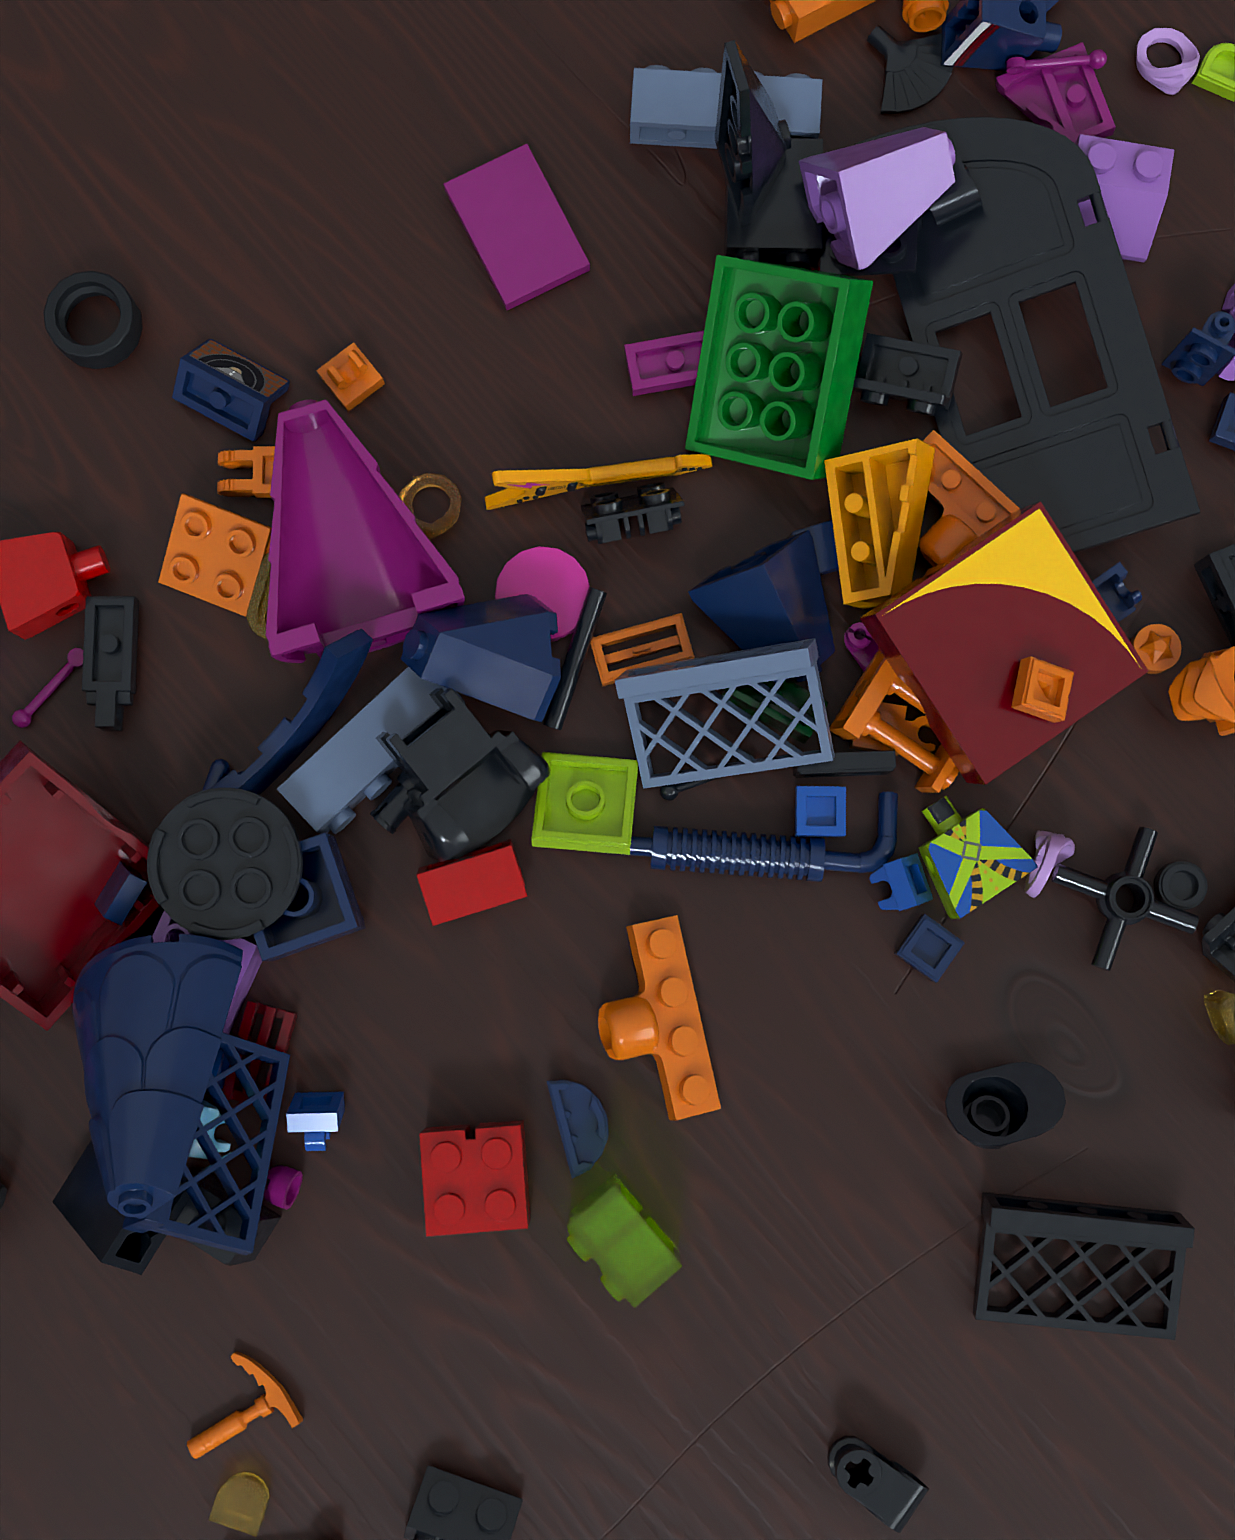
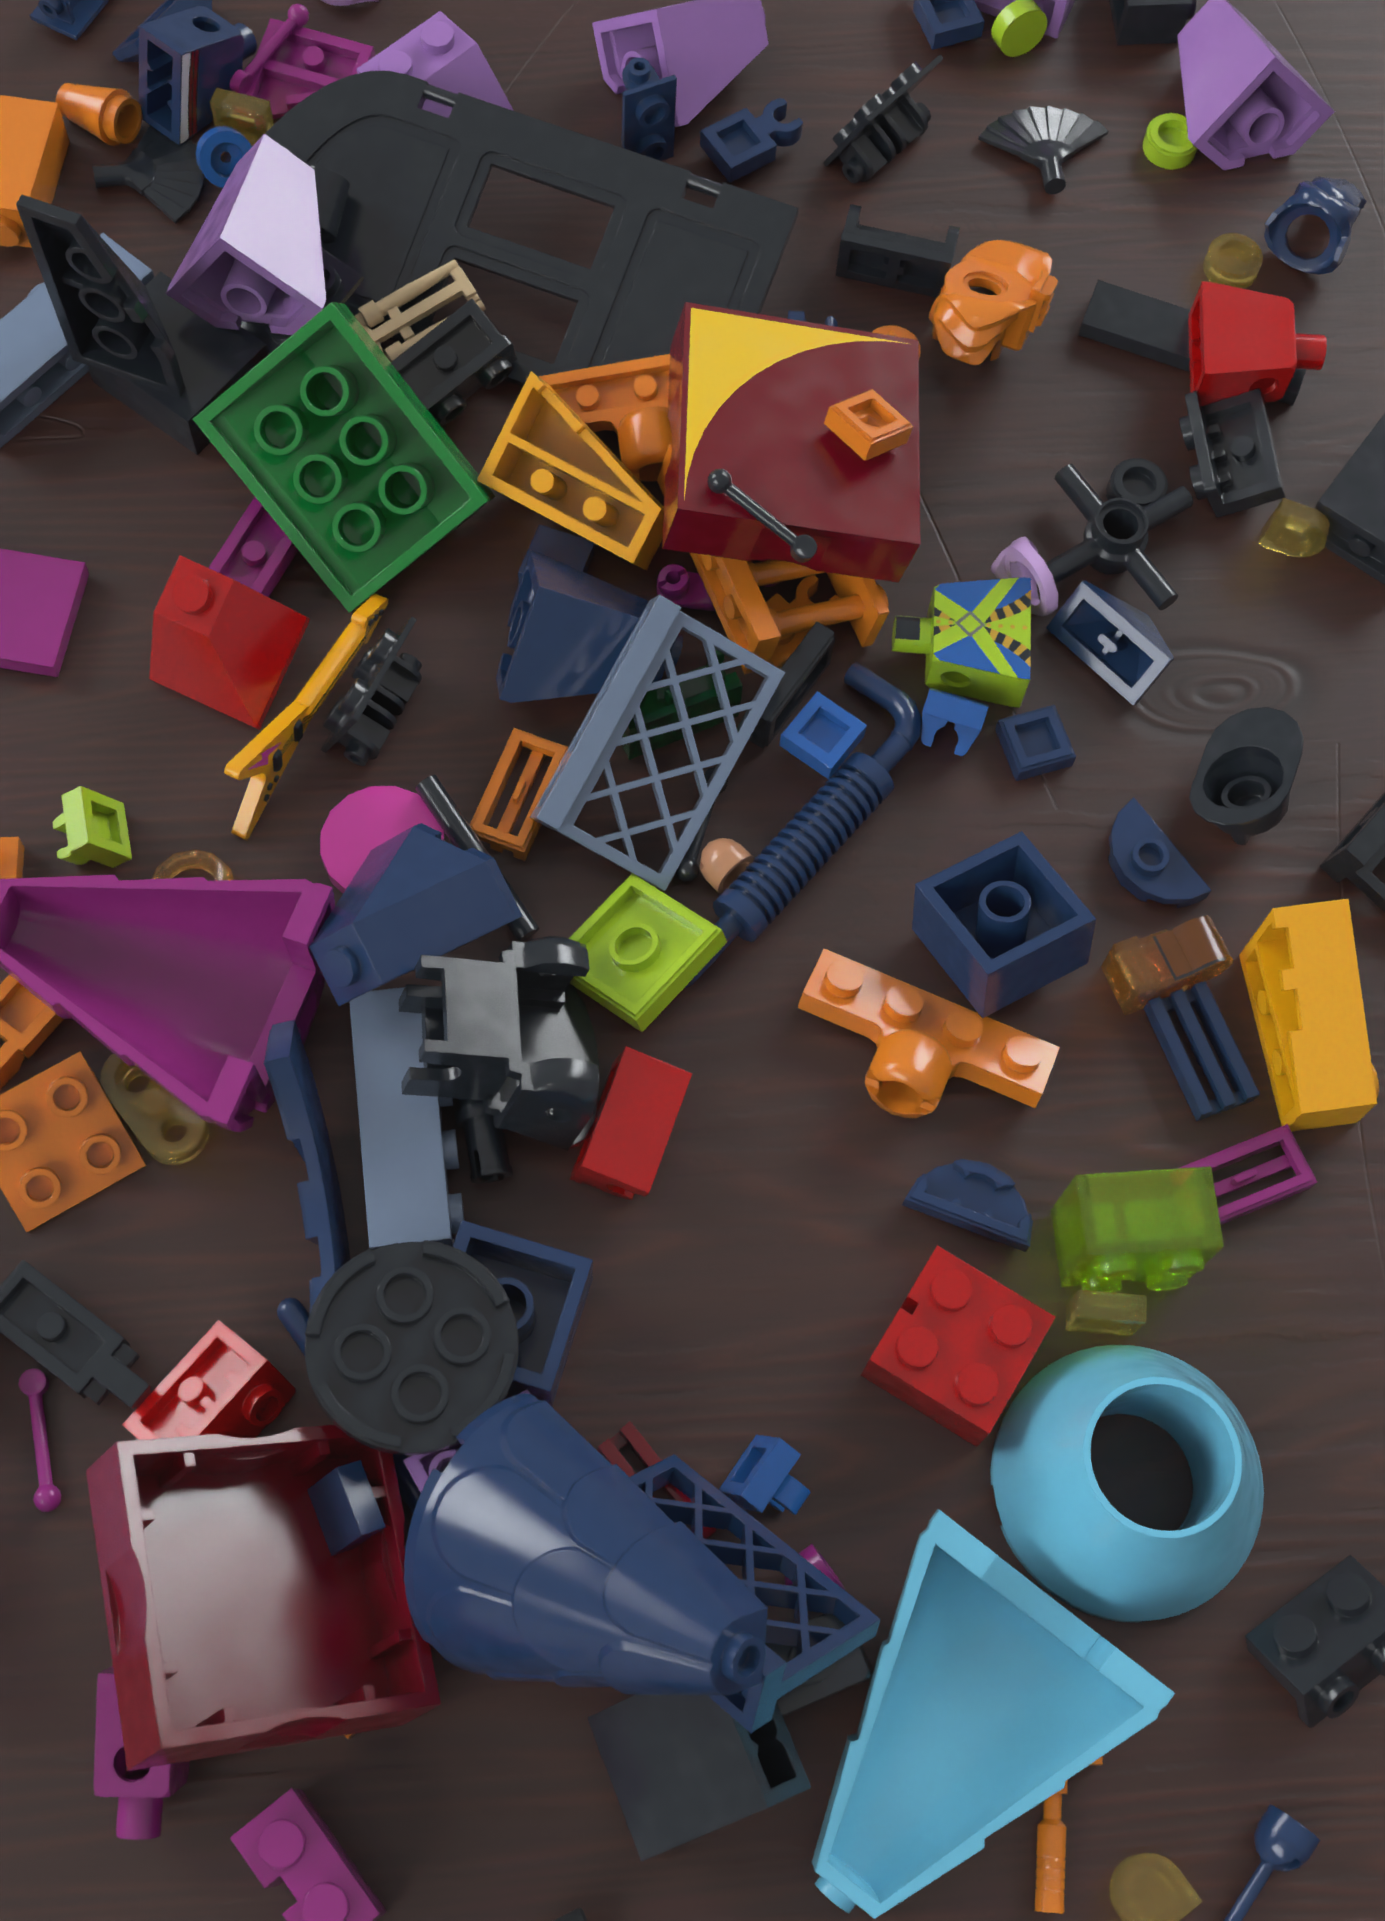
camera: 60 degrees left, 15 degrees down
(130, 767) = (214, 1390): none -> red bracket
(260, 1338) = (968, 1721): none -> medium azure cone
(420, 417) = (93, 828): none -> lime tile
(485, 1272) = (1067, 1527): none -> medium azure cone
(563, 1255) = (1105, 1312): none -> clear yellow tile
(598, 392) = (222, 642): none -> red slope
(688, 811) = (723, 862): none -> nougat hinge
(757, 1303) = (1292, 1159): none -> magenta tile
(766, 1235) = (1222, 1041): none -> dark blue tile
(770, 1019) = (1002, 924): none -> dark blue brick
(830, 1139) = (1165, 962): none -> clear orange leg
(854, 1261) = (1311, 1014): none -> light orange wedge
(898, 1078) = (1149, 861): none -> dark blue plate
(907, 292) = (373, 313): none -> tan piece
(915, 712) = (801, 547): none -> black hinge
(951, 100) = (212, 144): none -> blue tile
(989, 89) = (242, 112): none -> clear yellow tile
(1046, 949) = (1112, 640): none -> dark blue slope

